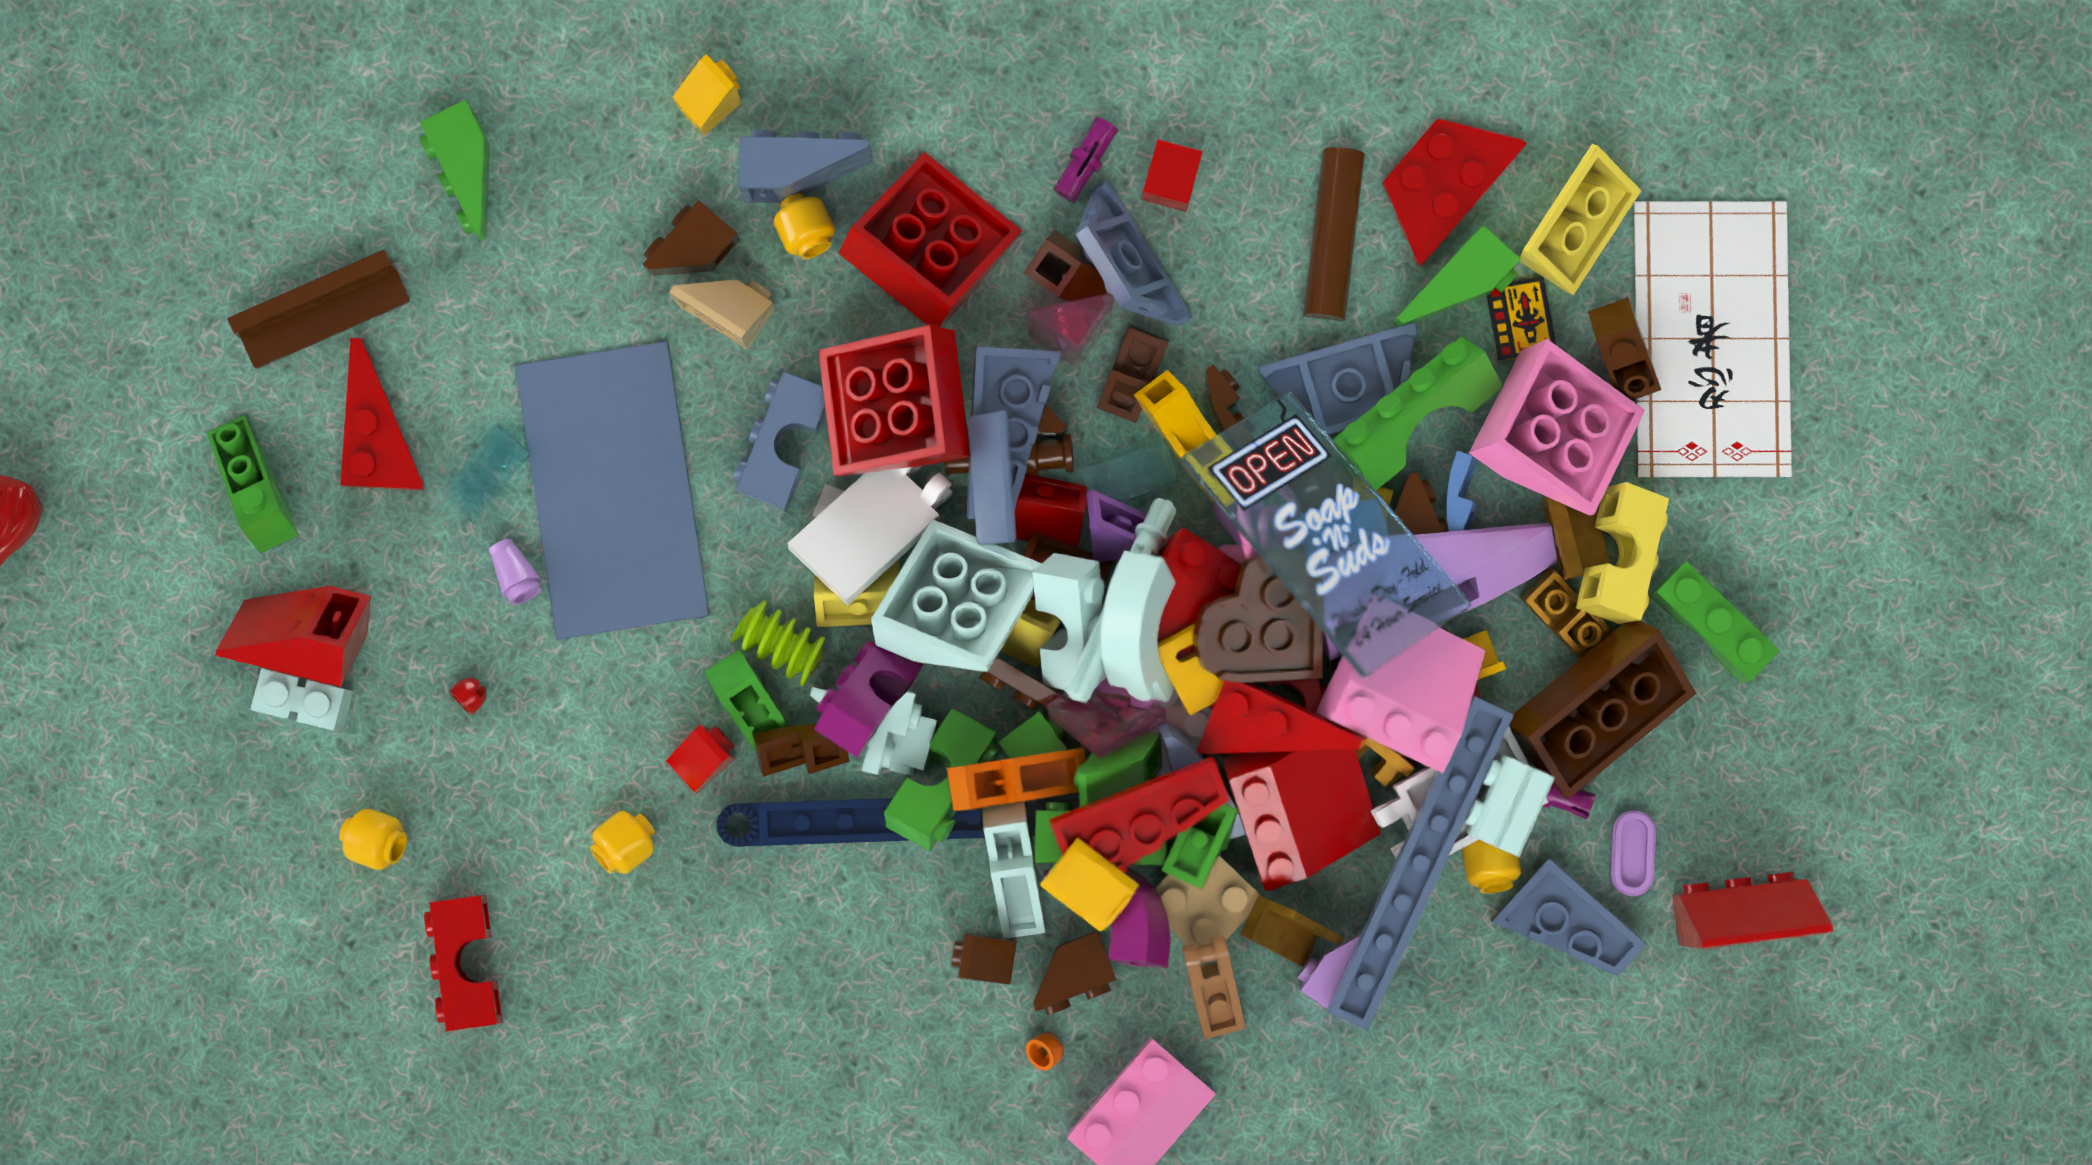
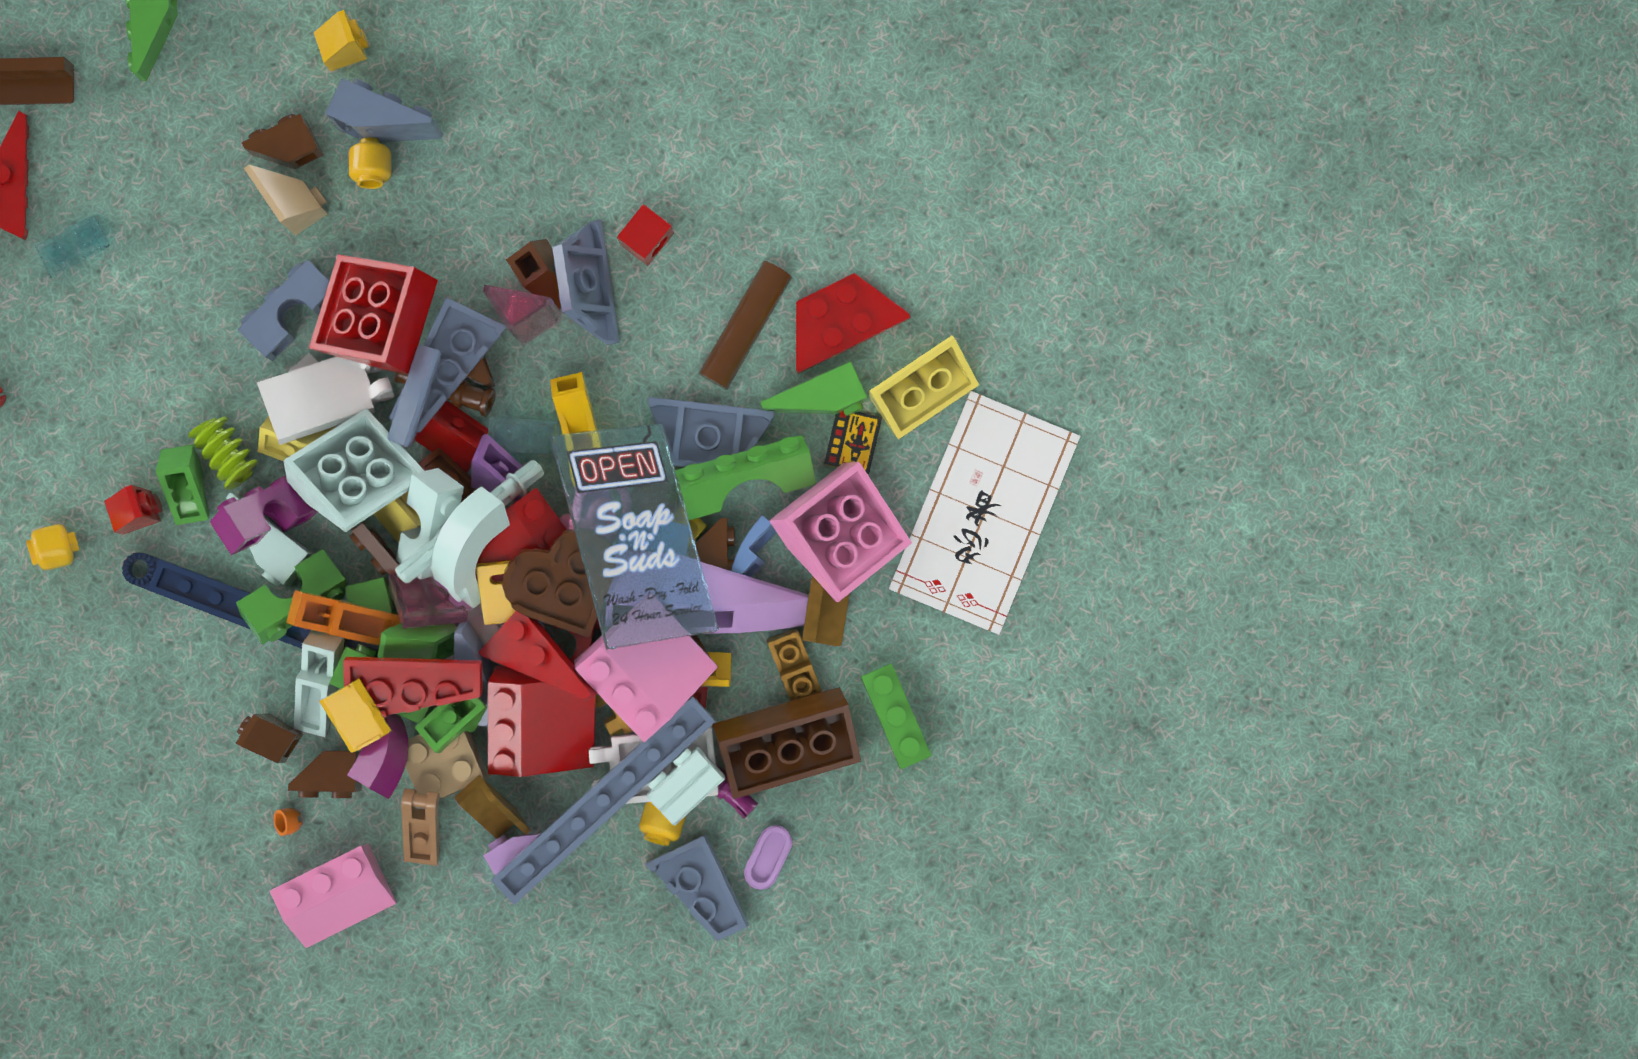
camera: 25 degrees right, 0 degrees up
(514, 573) = (60, 324): lavender cone -> none
(612, 490) = (156, 295): sand blue piece -> none
(795, 746) = (196, 528): reddish brown slope -> none
(899, 719) = (276, 542): light aqua slope -> none
(929, 241) = (454, 210): red slope -> none
(1070, 183) = (608, 184): magenta pin -> none
(1132, 371) = (562, 360): reddish brown slope -> none
(1222, 396) = (613, 406): reddish brown slope -> none
(1624, 349) = (915, 493): reddish brown slope -> none
(1636, 523) = (870, 621): light yellow arch -> none
(1748, 912) = (827, 936): red slope -> none

